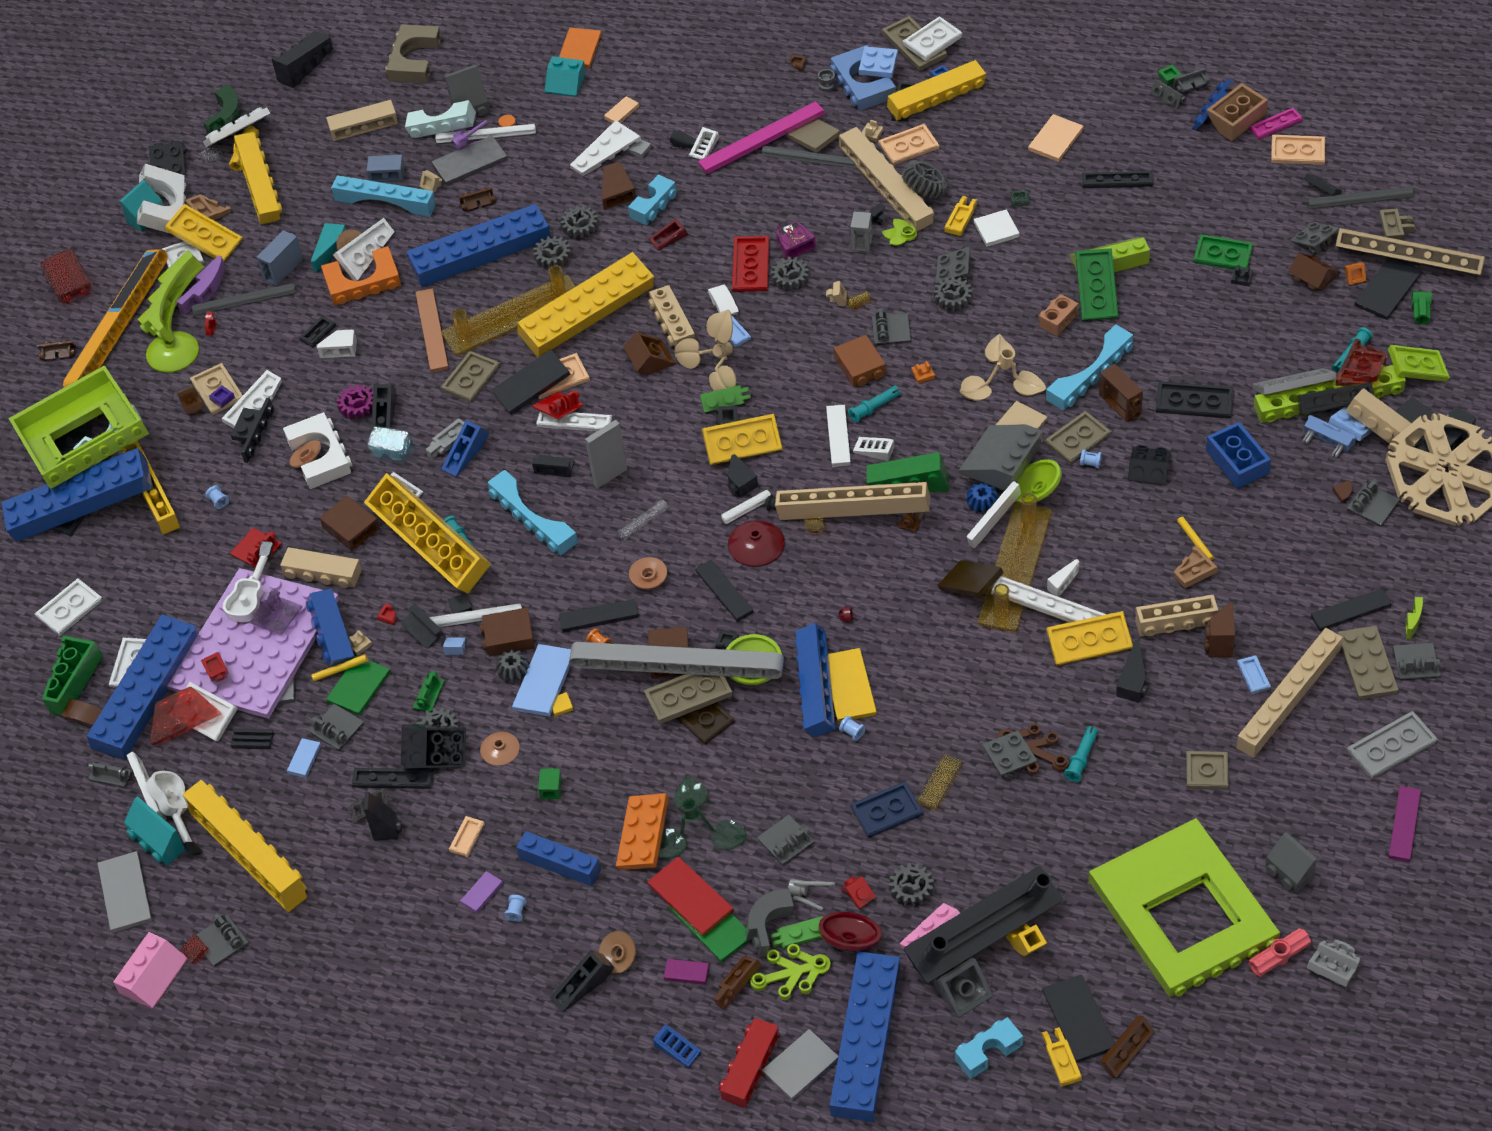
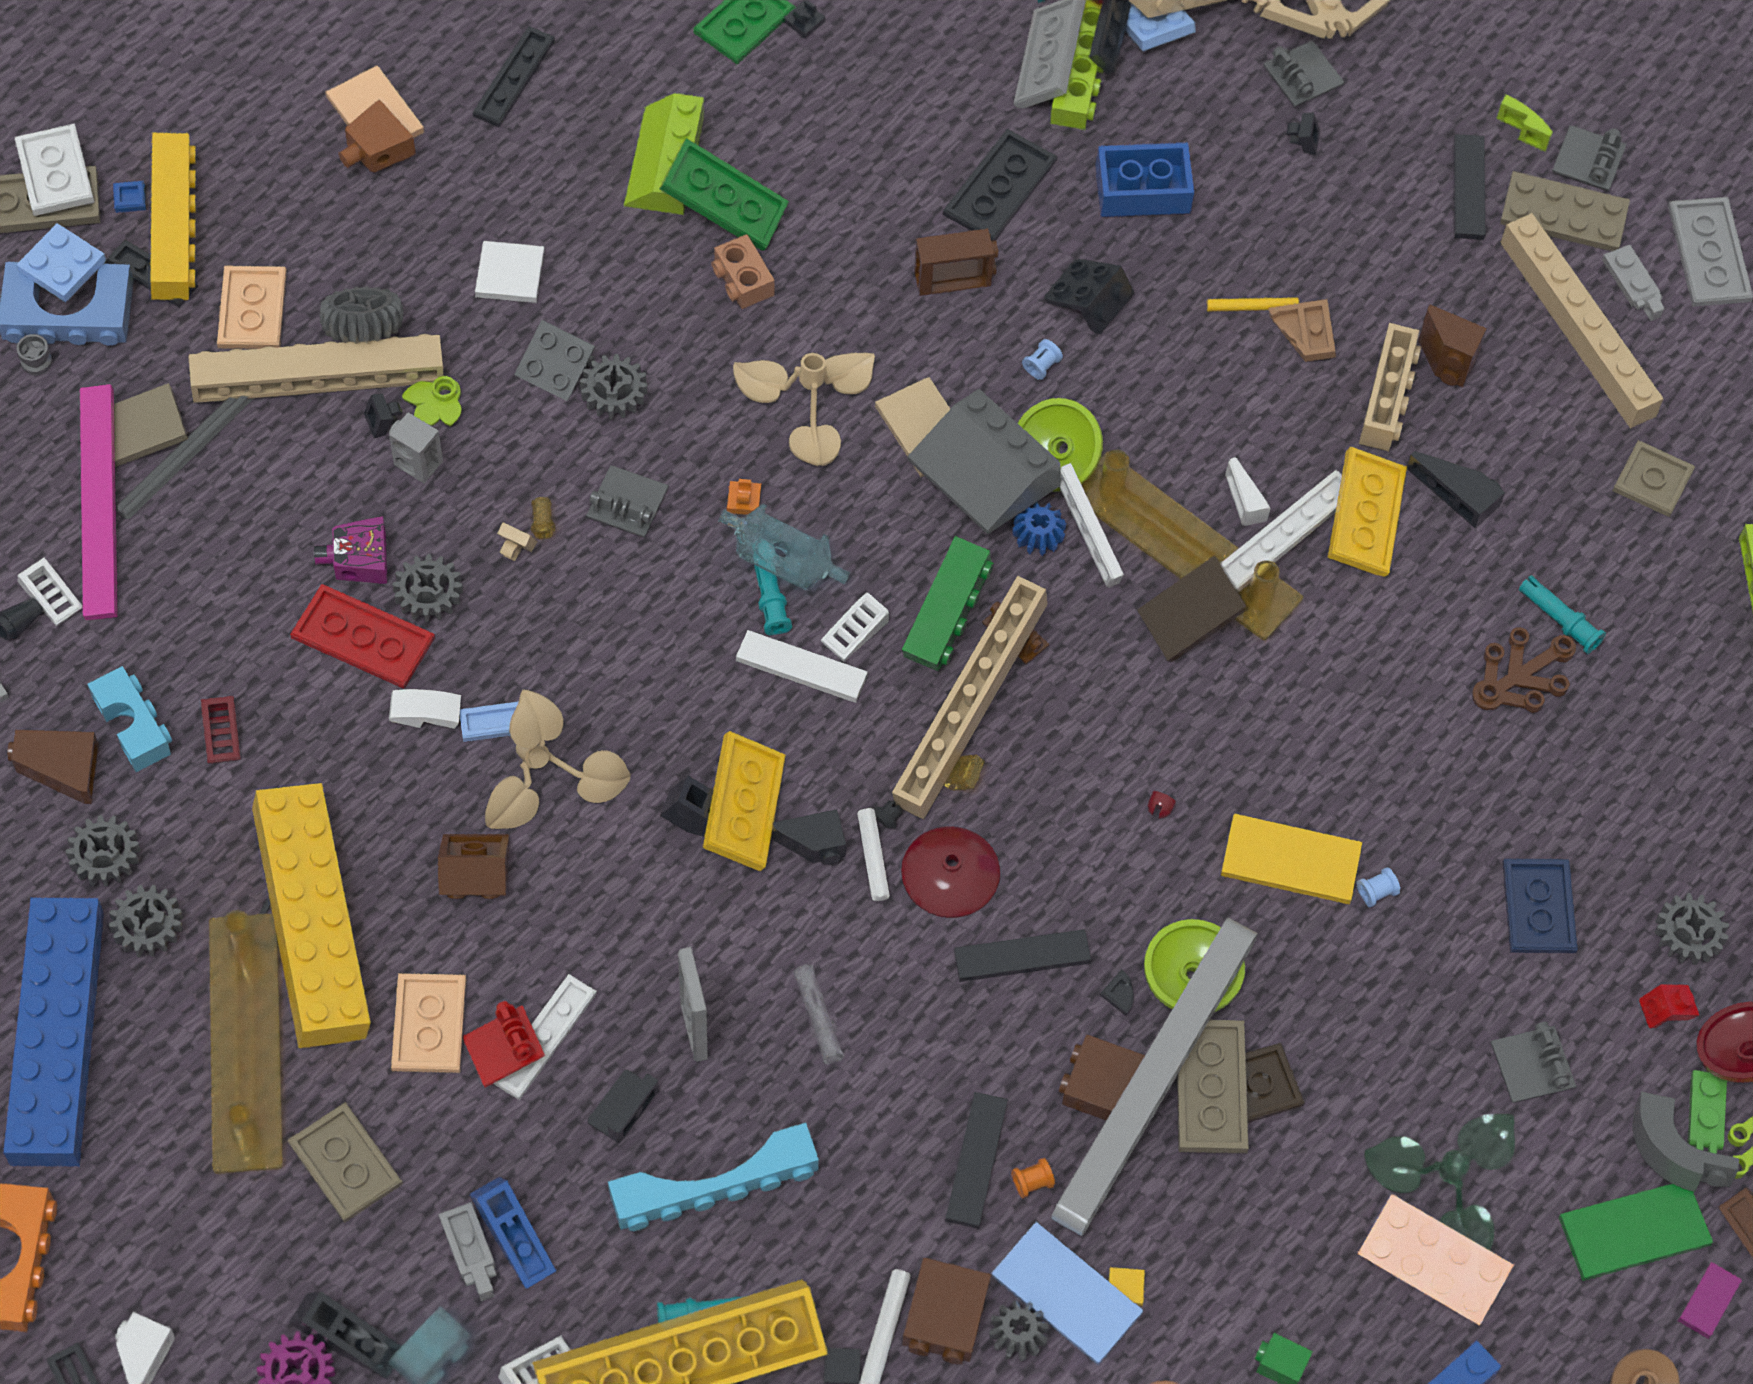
camera: 75 degrees left, 10 degrees up
(432, 330) = (198, 1185): nougat tile -> none
(531, 382) = (426, 1068): black tile -> none
(645, 567) = (941, 1036): nougat dish -> none
(670, 315) = (416, 797): tan brick -> none
(690, 896) = (1588, 1238): red tile -> none
(723, 397) = (635, 792): bright green hinge -> none
(800, 888) = (1632, 1081): light grey plant -> none
(814, 680) = (1271, 898): blue brick -> none
(859, 361) = (676, 570): dark orange brick -> none
(872, 130) = (188, 341): tan tile -> none
(898, 381) = (805, 556): none -> clear light blue plate
(939, 782) = (1523, 815): clear yellow tile -> none
(960, 216) = (458, 306): yellow hinge -> none
(1009, 753) = (1525, 701): dark grey hinge -> none
(1019, 198) = (467, 214): clear green tile -> none
(1033, 140) = (377, 139): none -> dark orange torso
(1067, 389) = (846, 231): medium azure arch -> none
(1079, 434) = (987, 356): dark tan tile -> none
(1253, 674) = (1521, 348): light blue tile -> none
(1328, 433) = (1159, 60): medium blue piece -> none
(1328, 518) = (1306, 133): none -> black tile
(1342, 713) = (1634, 281): none -> light grey hinge
(1343, 490) = (1263, 95): reddish brown tile -> none

